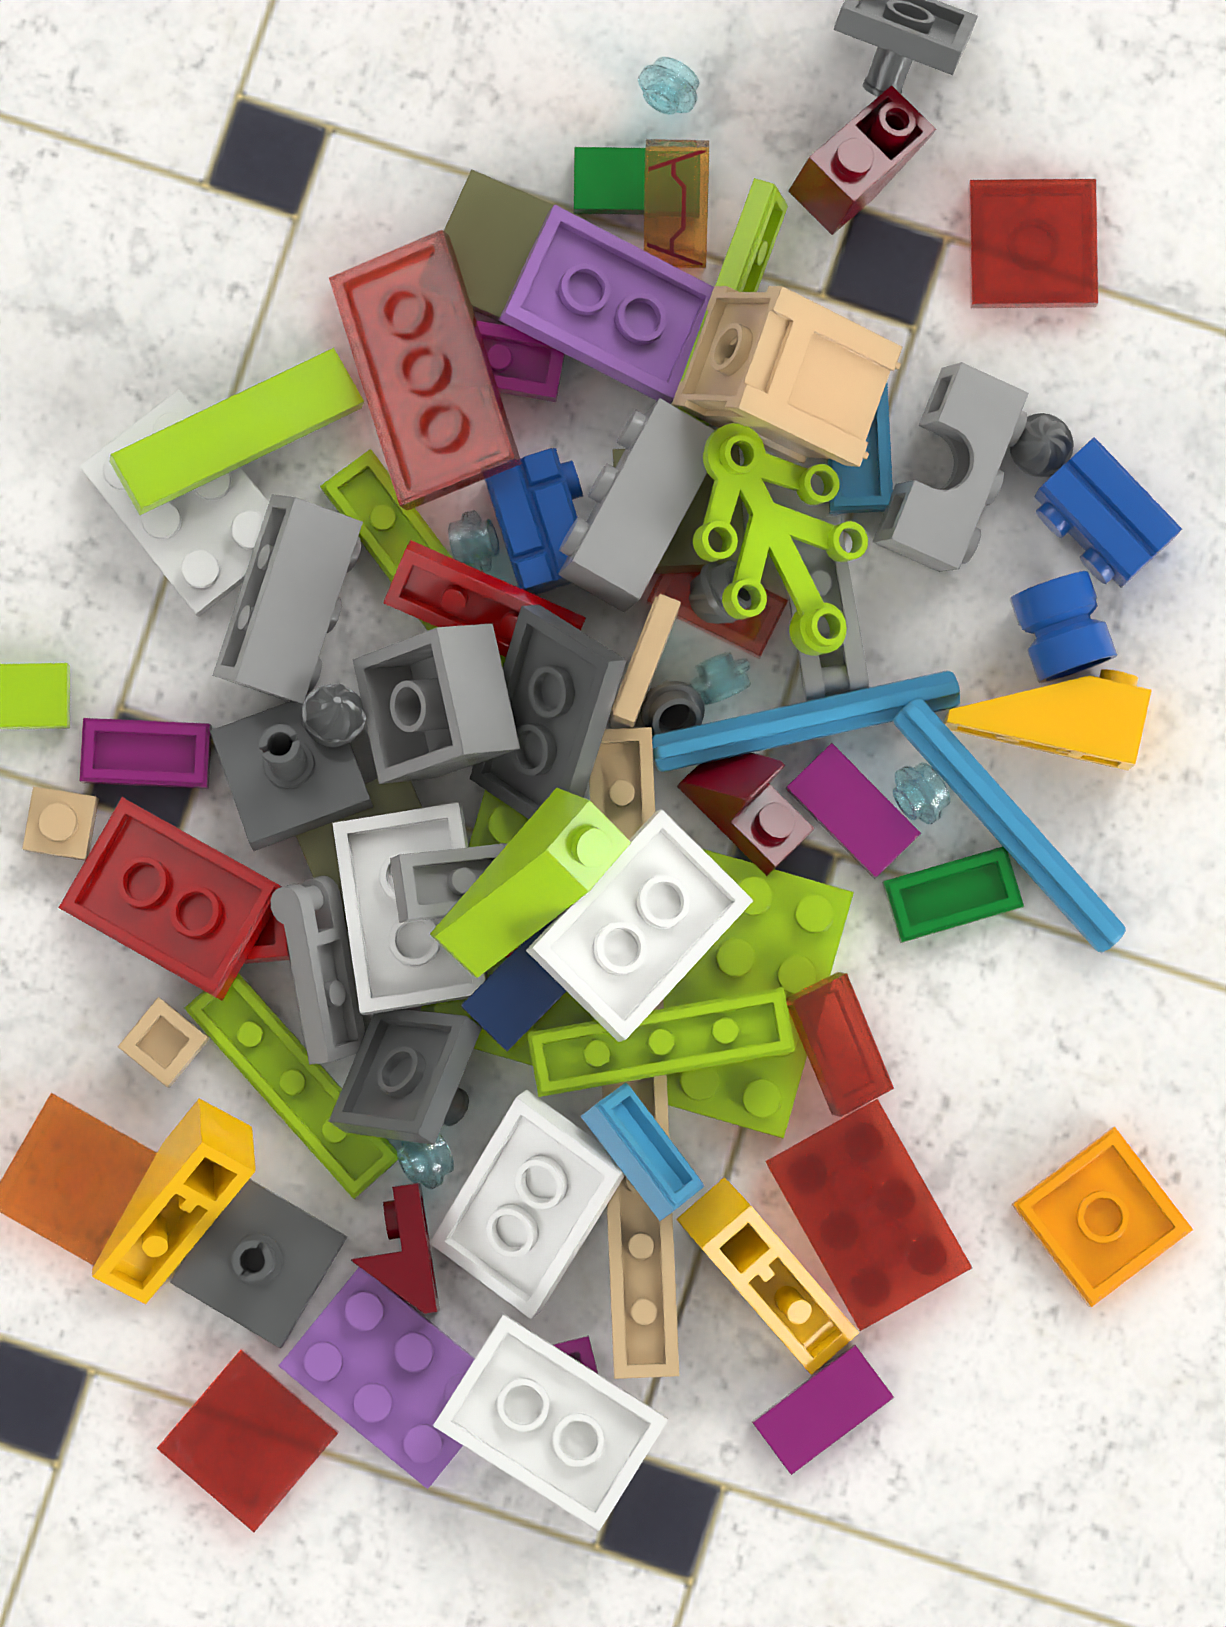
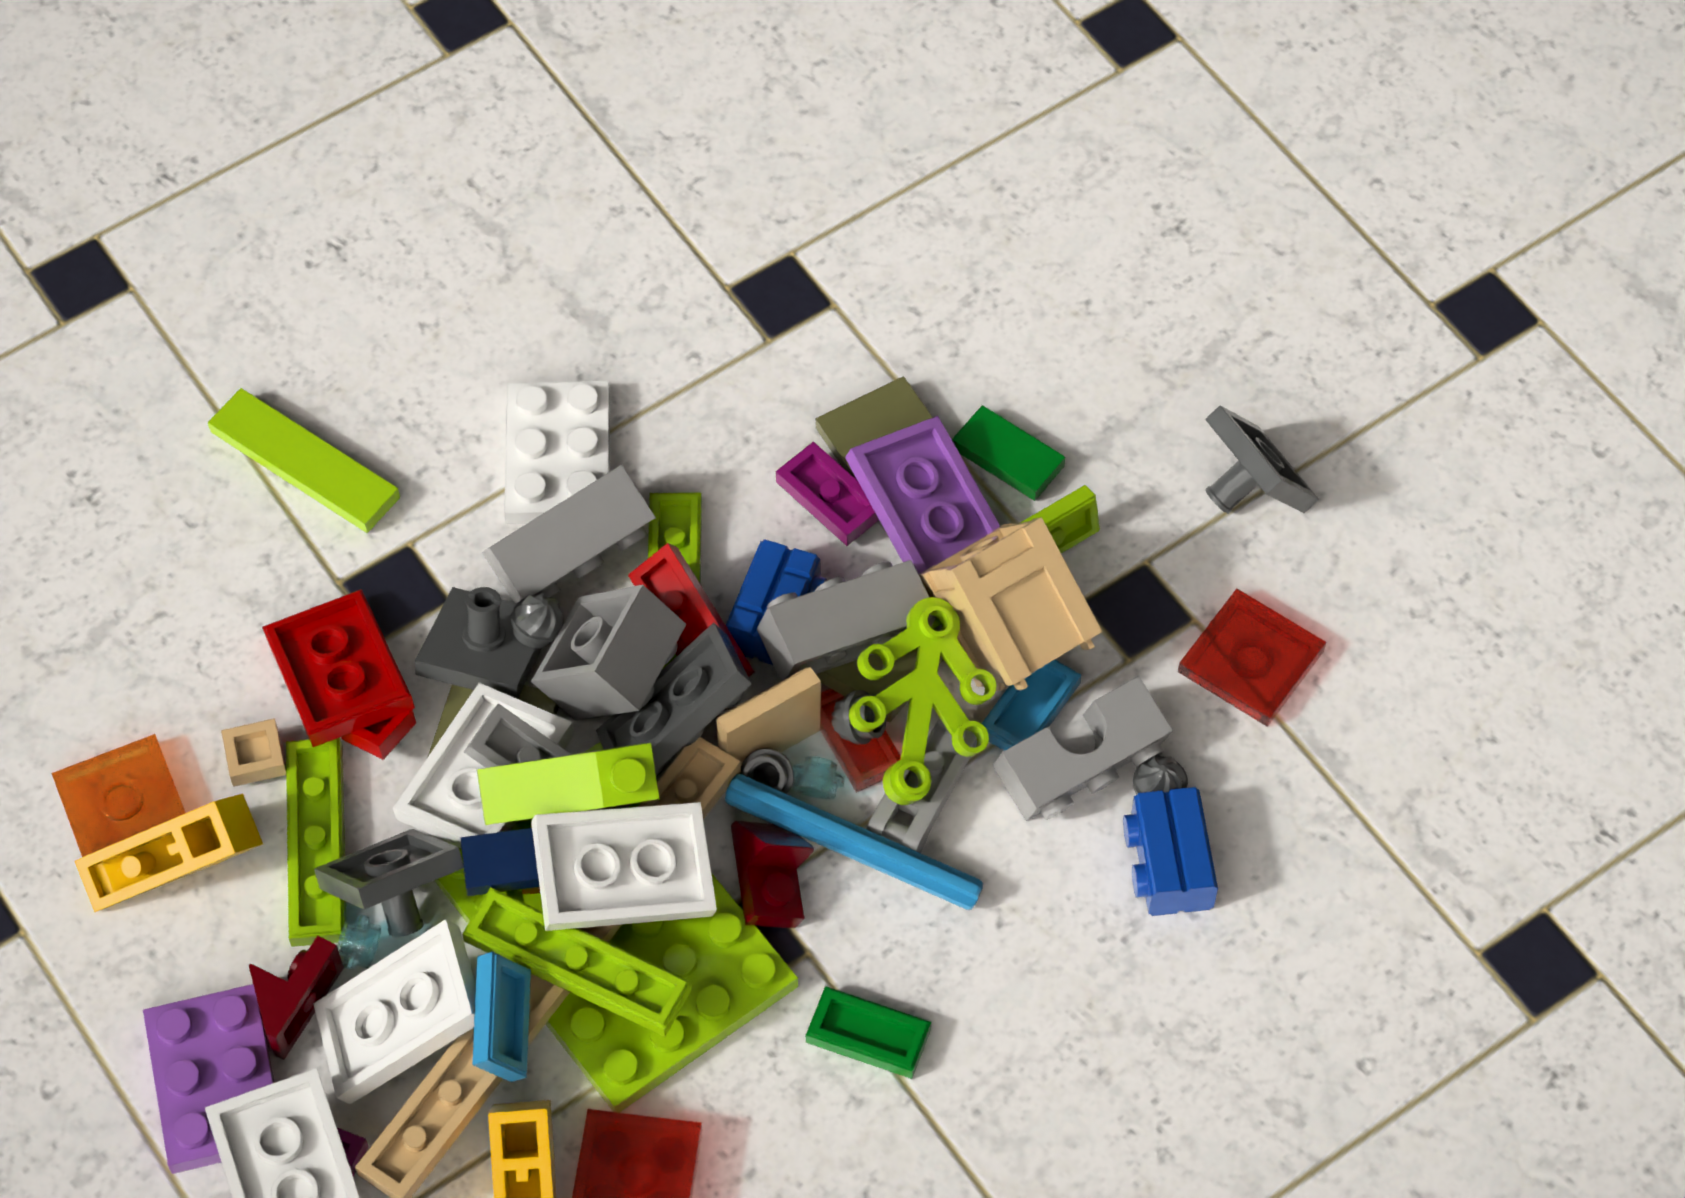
camera: 35 degrees right, 25 degrees down
(60, 823) = (309, 580): tan plate -> none
(145, 753) = (400, 577): magenta tile -> none
(236, 431) = (622, 421): lime tile -> none
(248, 1440) = (80, 1049): clear red tile -> none
(260, 1262) = (192, 936): dark grey tile -> none
(321, 967) = (390, 769): light grey plate -> none
(424, 370) = (772, 463): clear red tile -> none
(474, 541) = (721, 585): clear light blue plate -> none
(669, 86) = (1073, 408): clear light blue plate -> none
(676, 201) = (1023, 470): clear orange tile -> none
(839, 1044) = (704, 1066): clear red tile -> none
(853, 810) = (841, 928): magenta tile -> none
(860, 159) = (1167, 524): dark red slope -> none
(920, 793) = (897, 944): clear light blue plate -> none
(1009, 825) = (943, 1009): dark azure axle -> none
(1063, 628) = (1083, 906): blue wheel -> none
(1075, 718) = (1041, 964): yellow slope -> none

